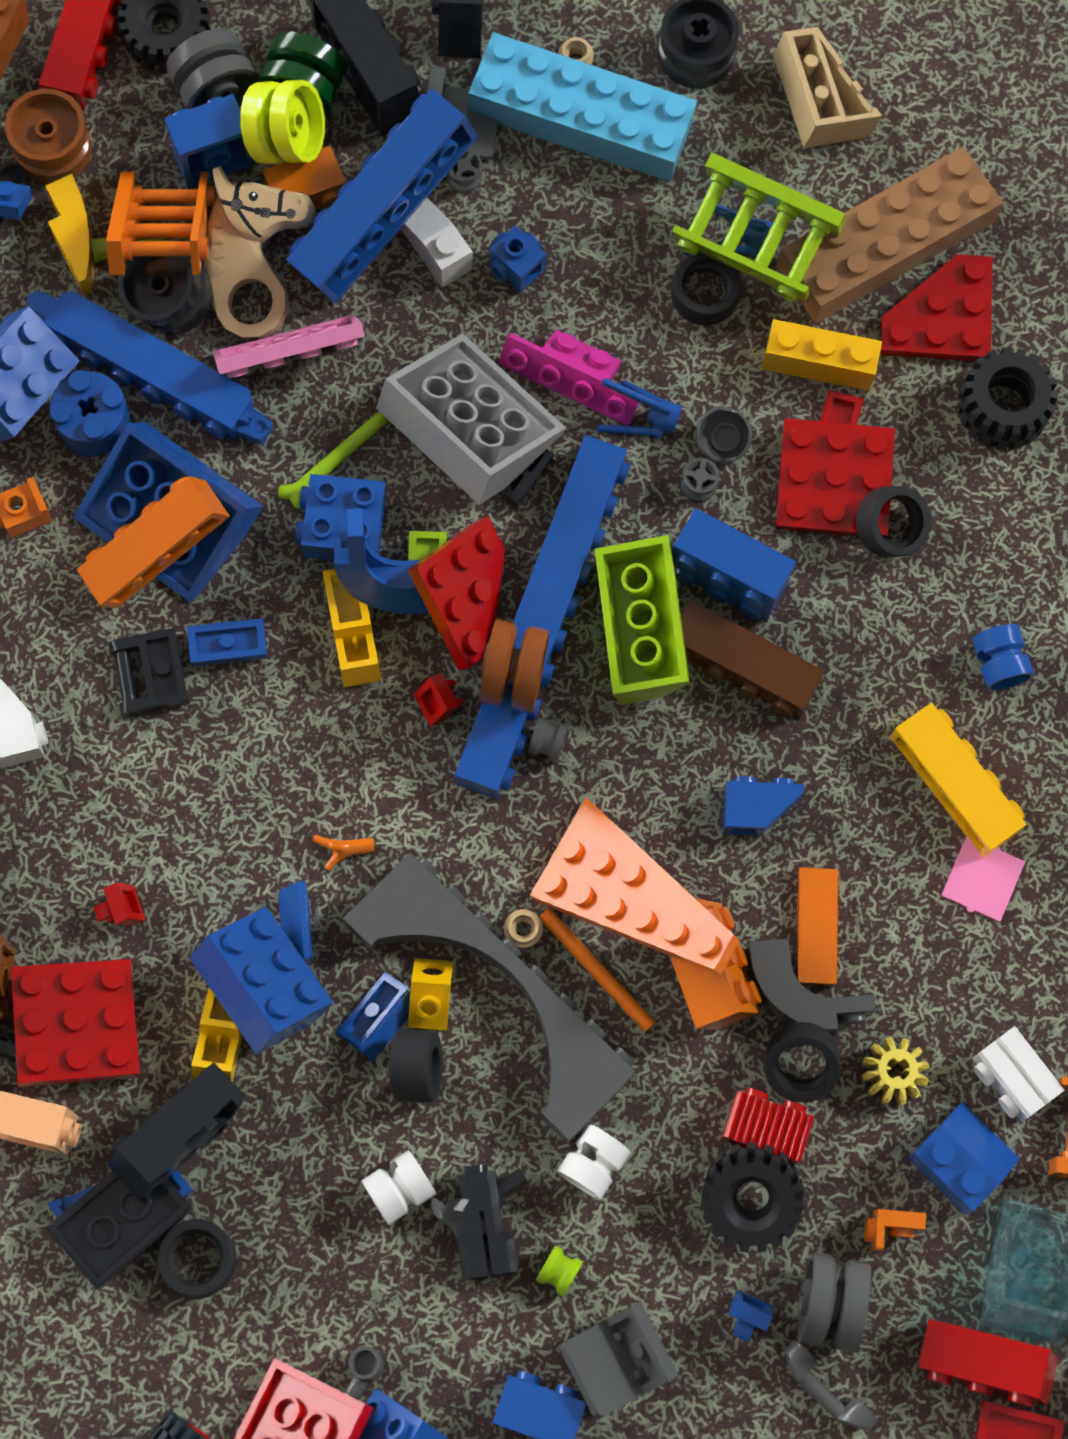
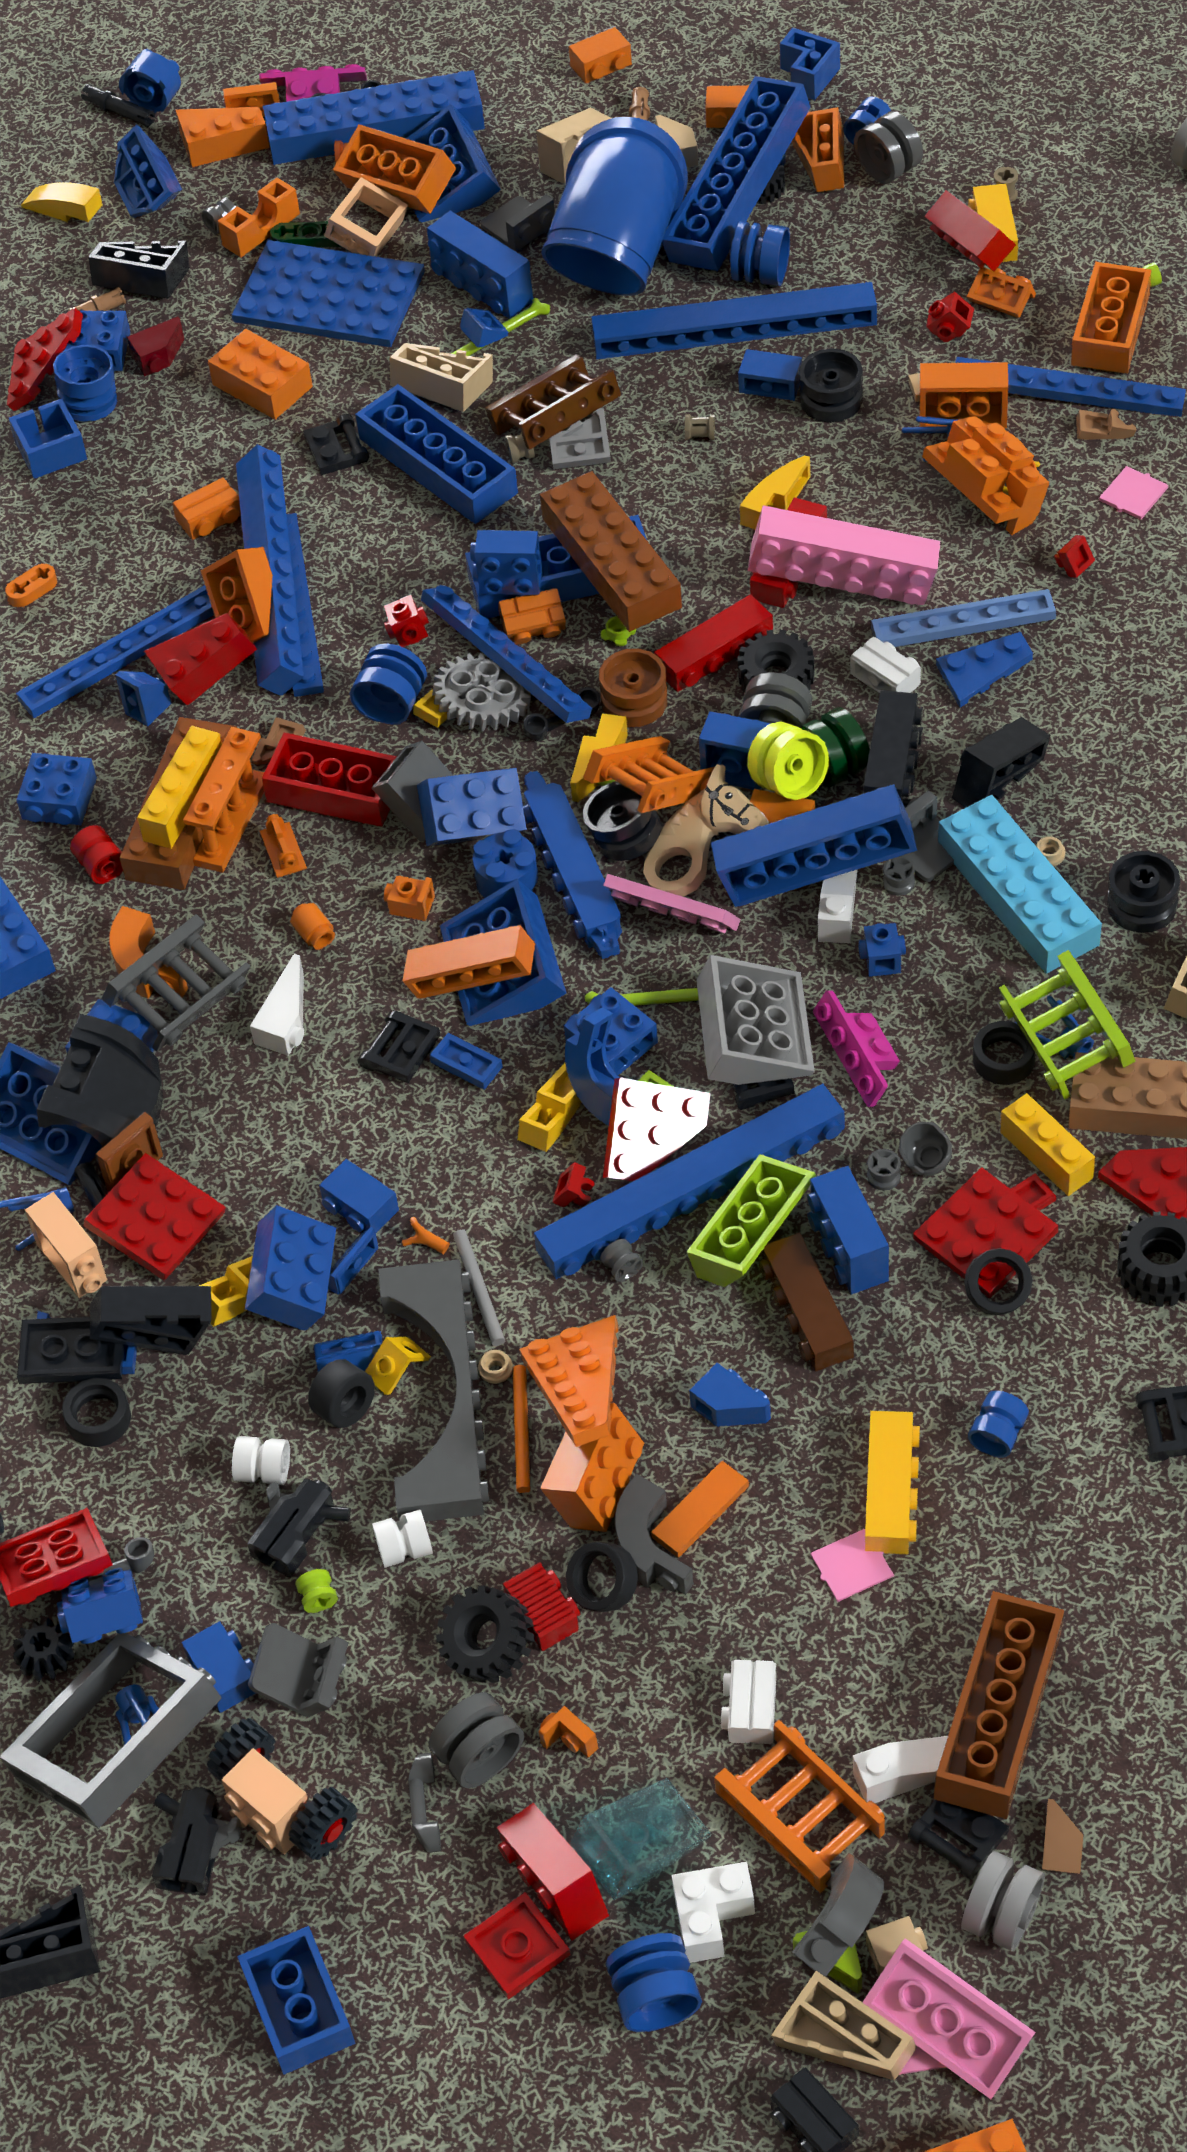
camera: 50 degrees right, 20 degrees down
(121, 906) = (249, 1170): red tile -> none
(251, 857) = (358, 1197): none -> blue brick
(439, 861) = (479, 1288): none -> light grey bar
(511, 665) = (628, 1180): dark orange wheel -> none
(662, 413) = (895, 1110): blue plant -> none
(750, 1313) = (415, 1714): blue tile -> none
(897, 1085) = (664, 1622): light yellow gear -> none
(964, 1159) = (661, 1727): blue slope -> none

